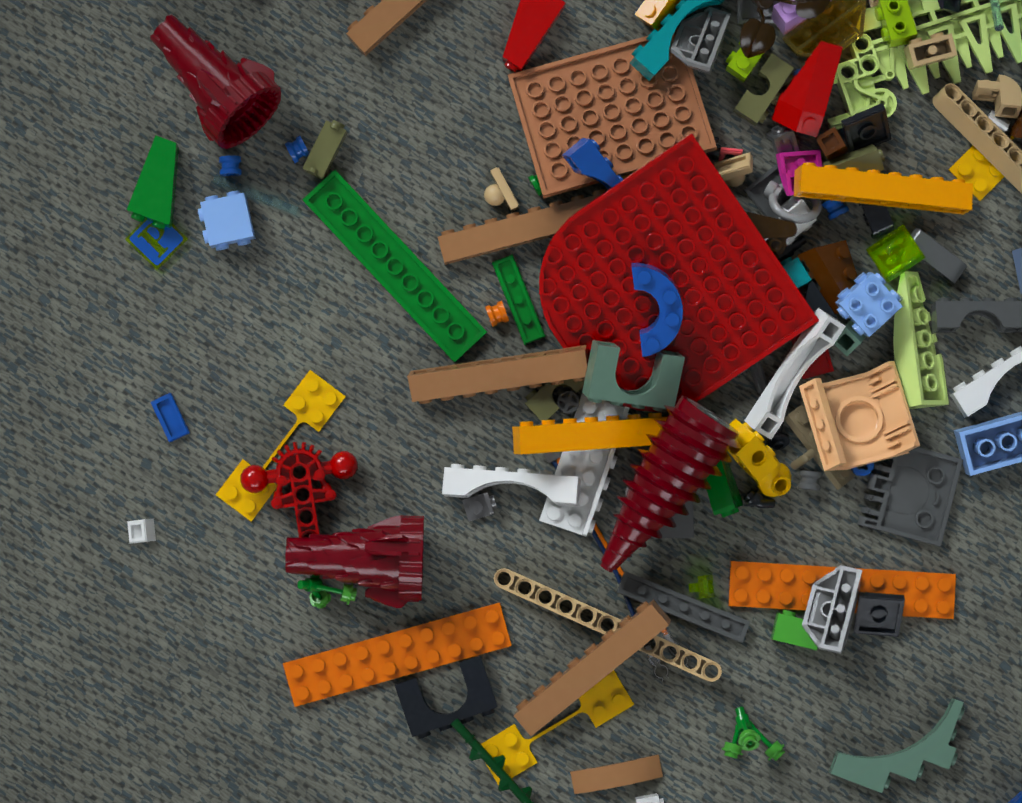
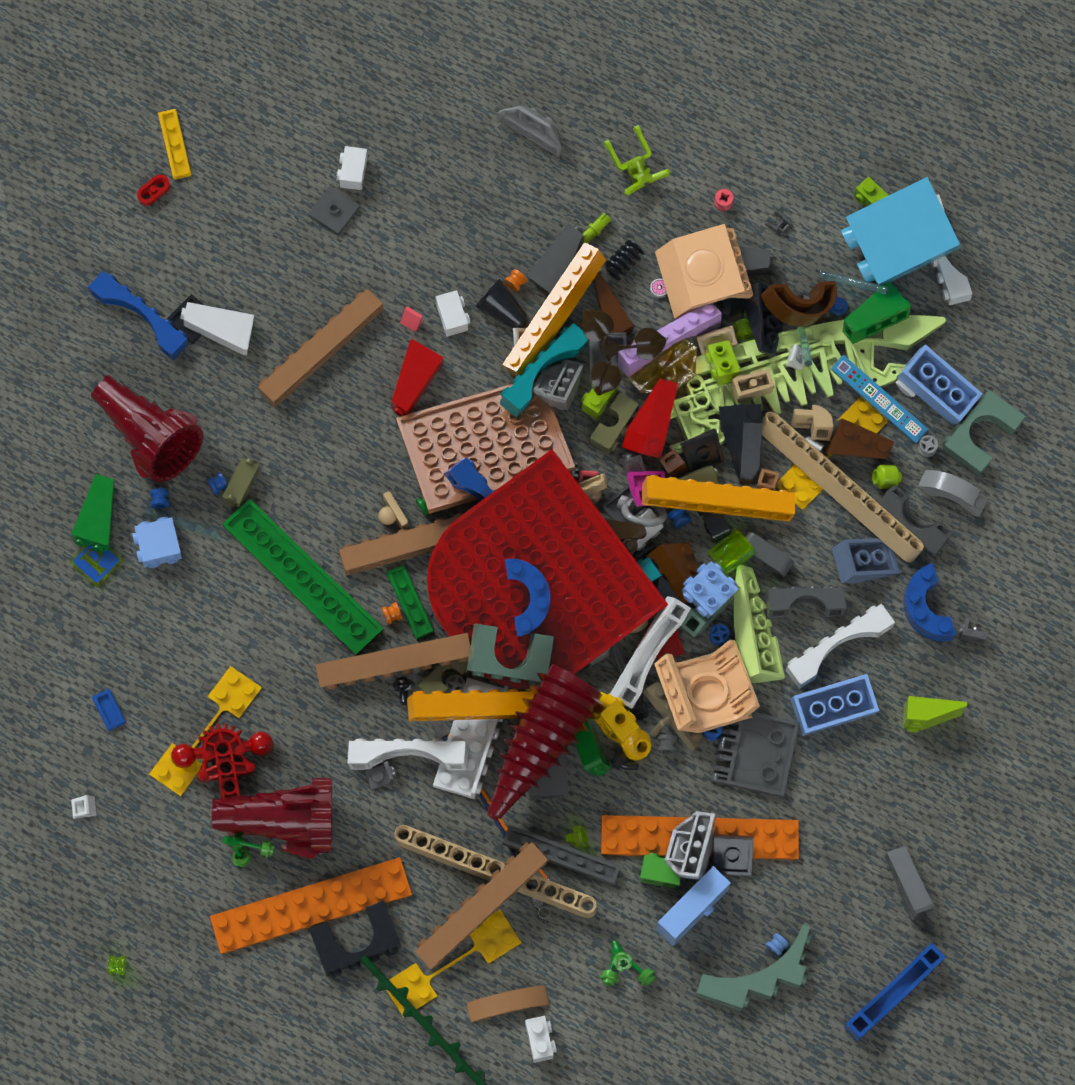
camera: 10 degrees left, 15 degrees down
(178, 716) = (117, 965): none -> clear neon green wheel
(508, 400) = (403, 685): none -> black plate
(831, 675) = (693, 906): none -> light blue brick
(875, 348) = (718, 630): none -> blue wheel
(915, 112) = (742, 432): none -> black wedge
(924, 719) = (777, 945): none -> medium blue wheel
(941, 165) = (768, 479): none -> medium nougat slope
(982, 16) = (795, 358): none -> white slope

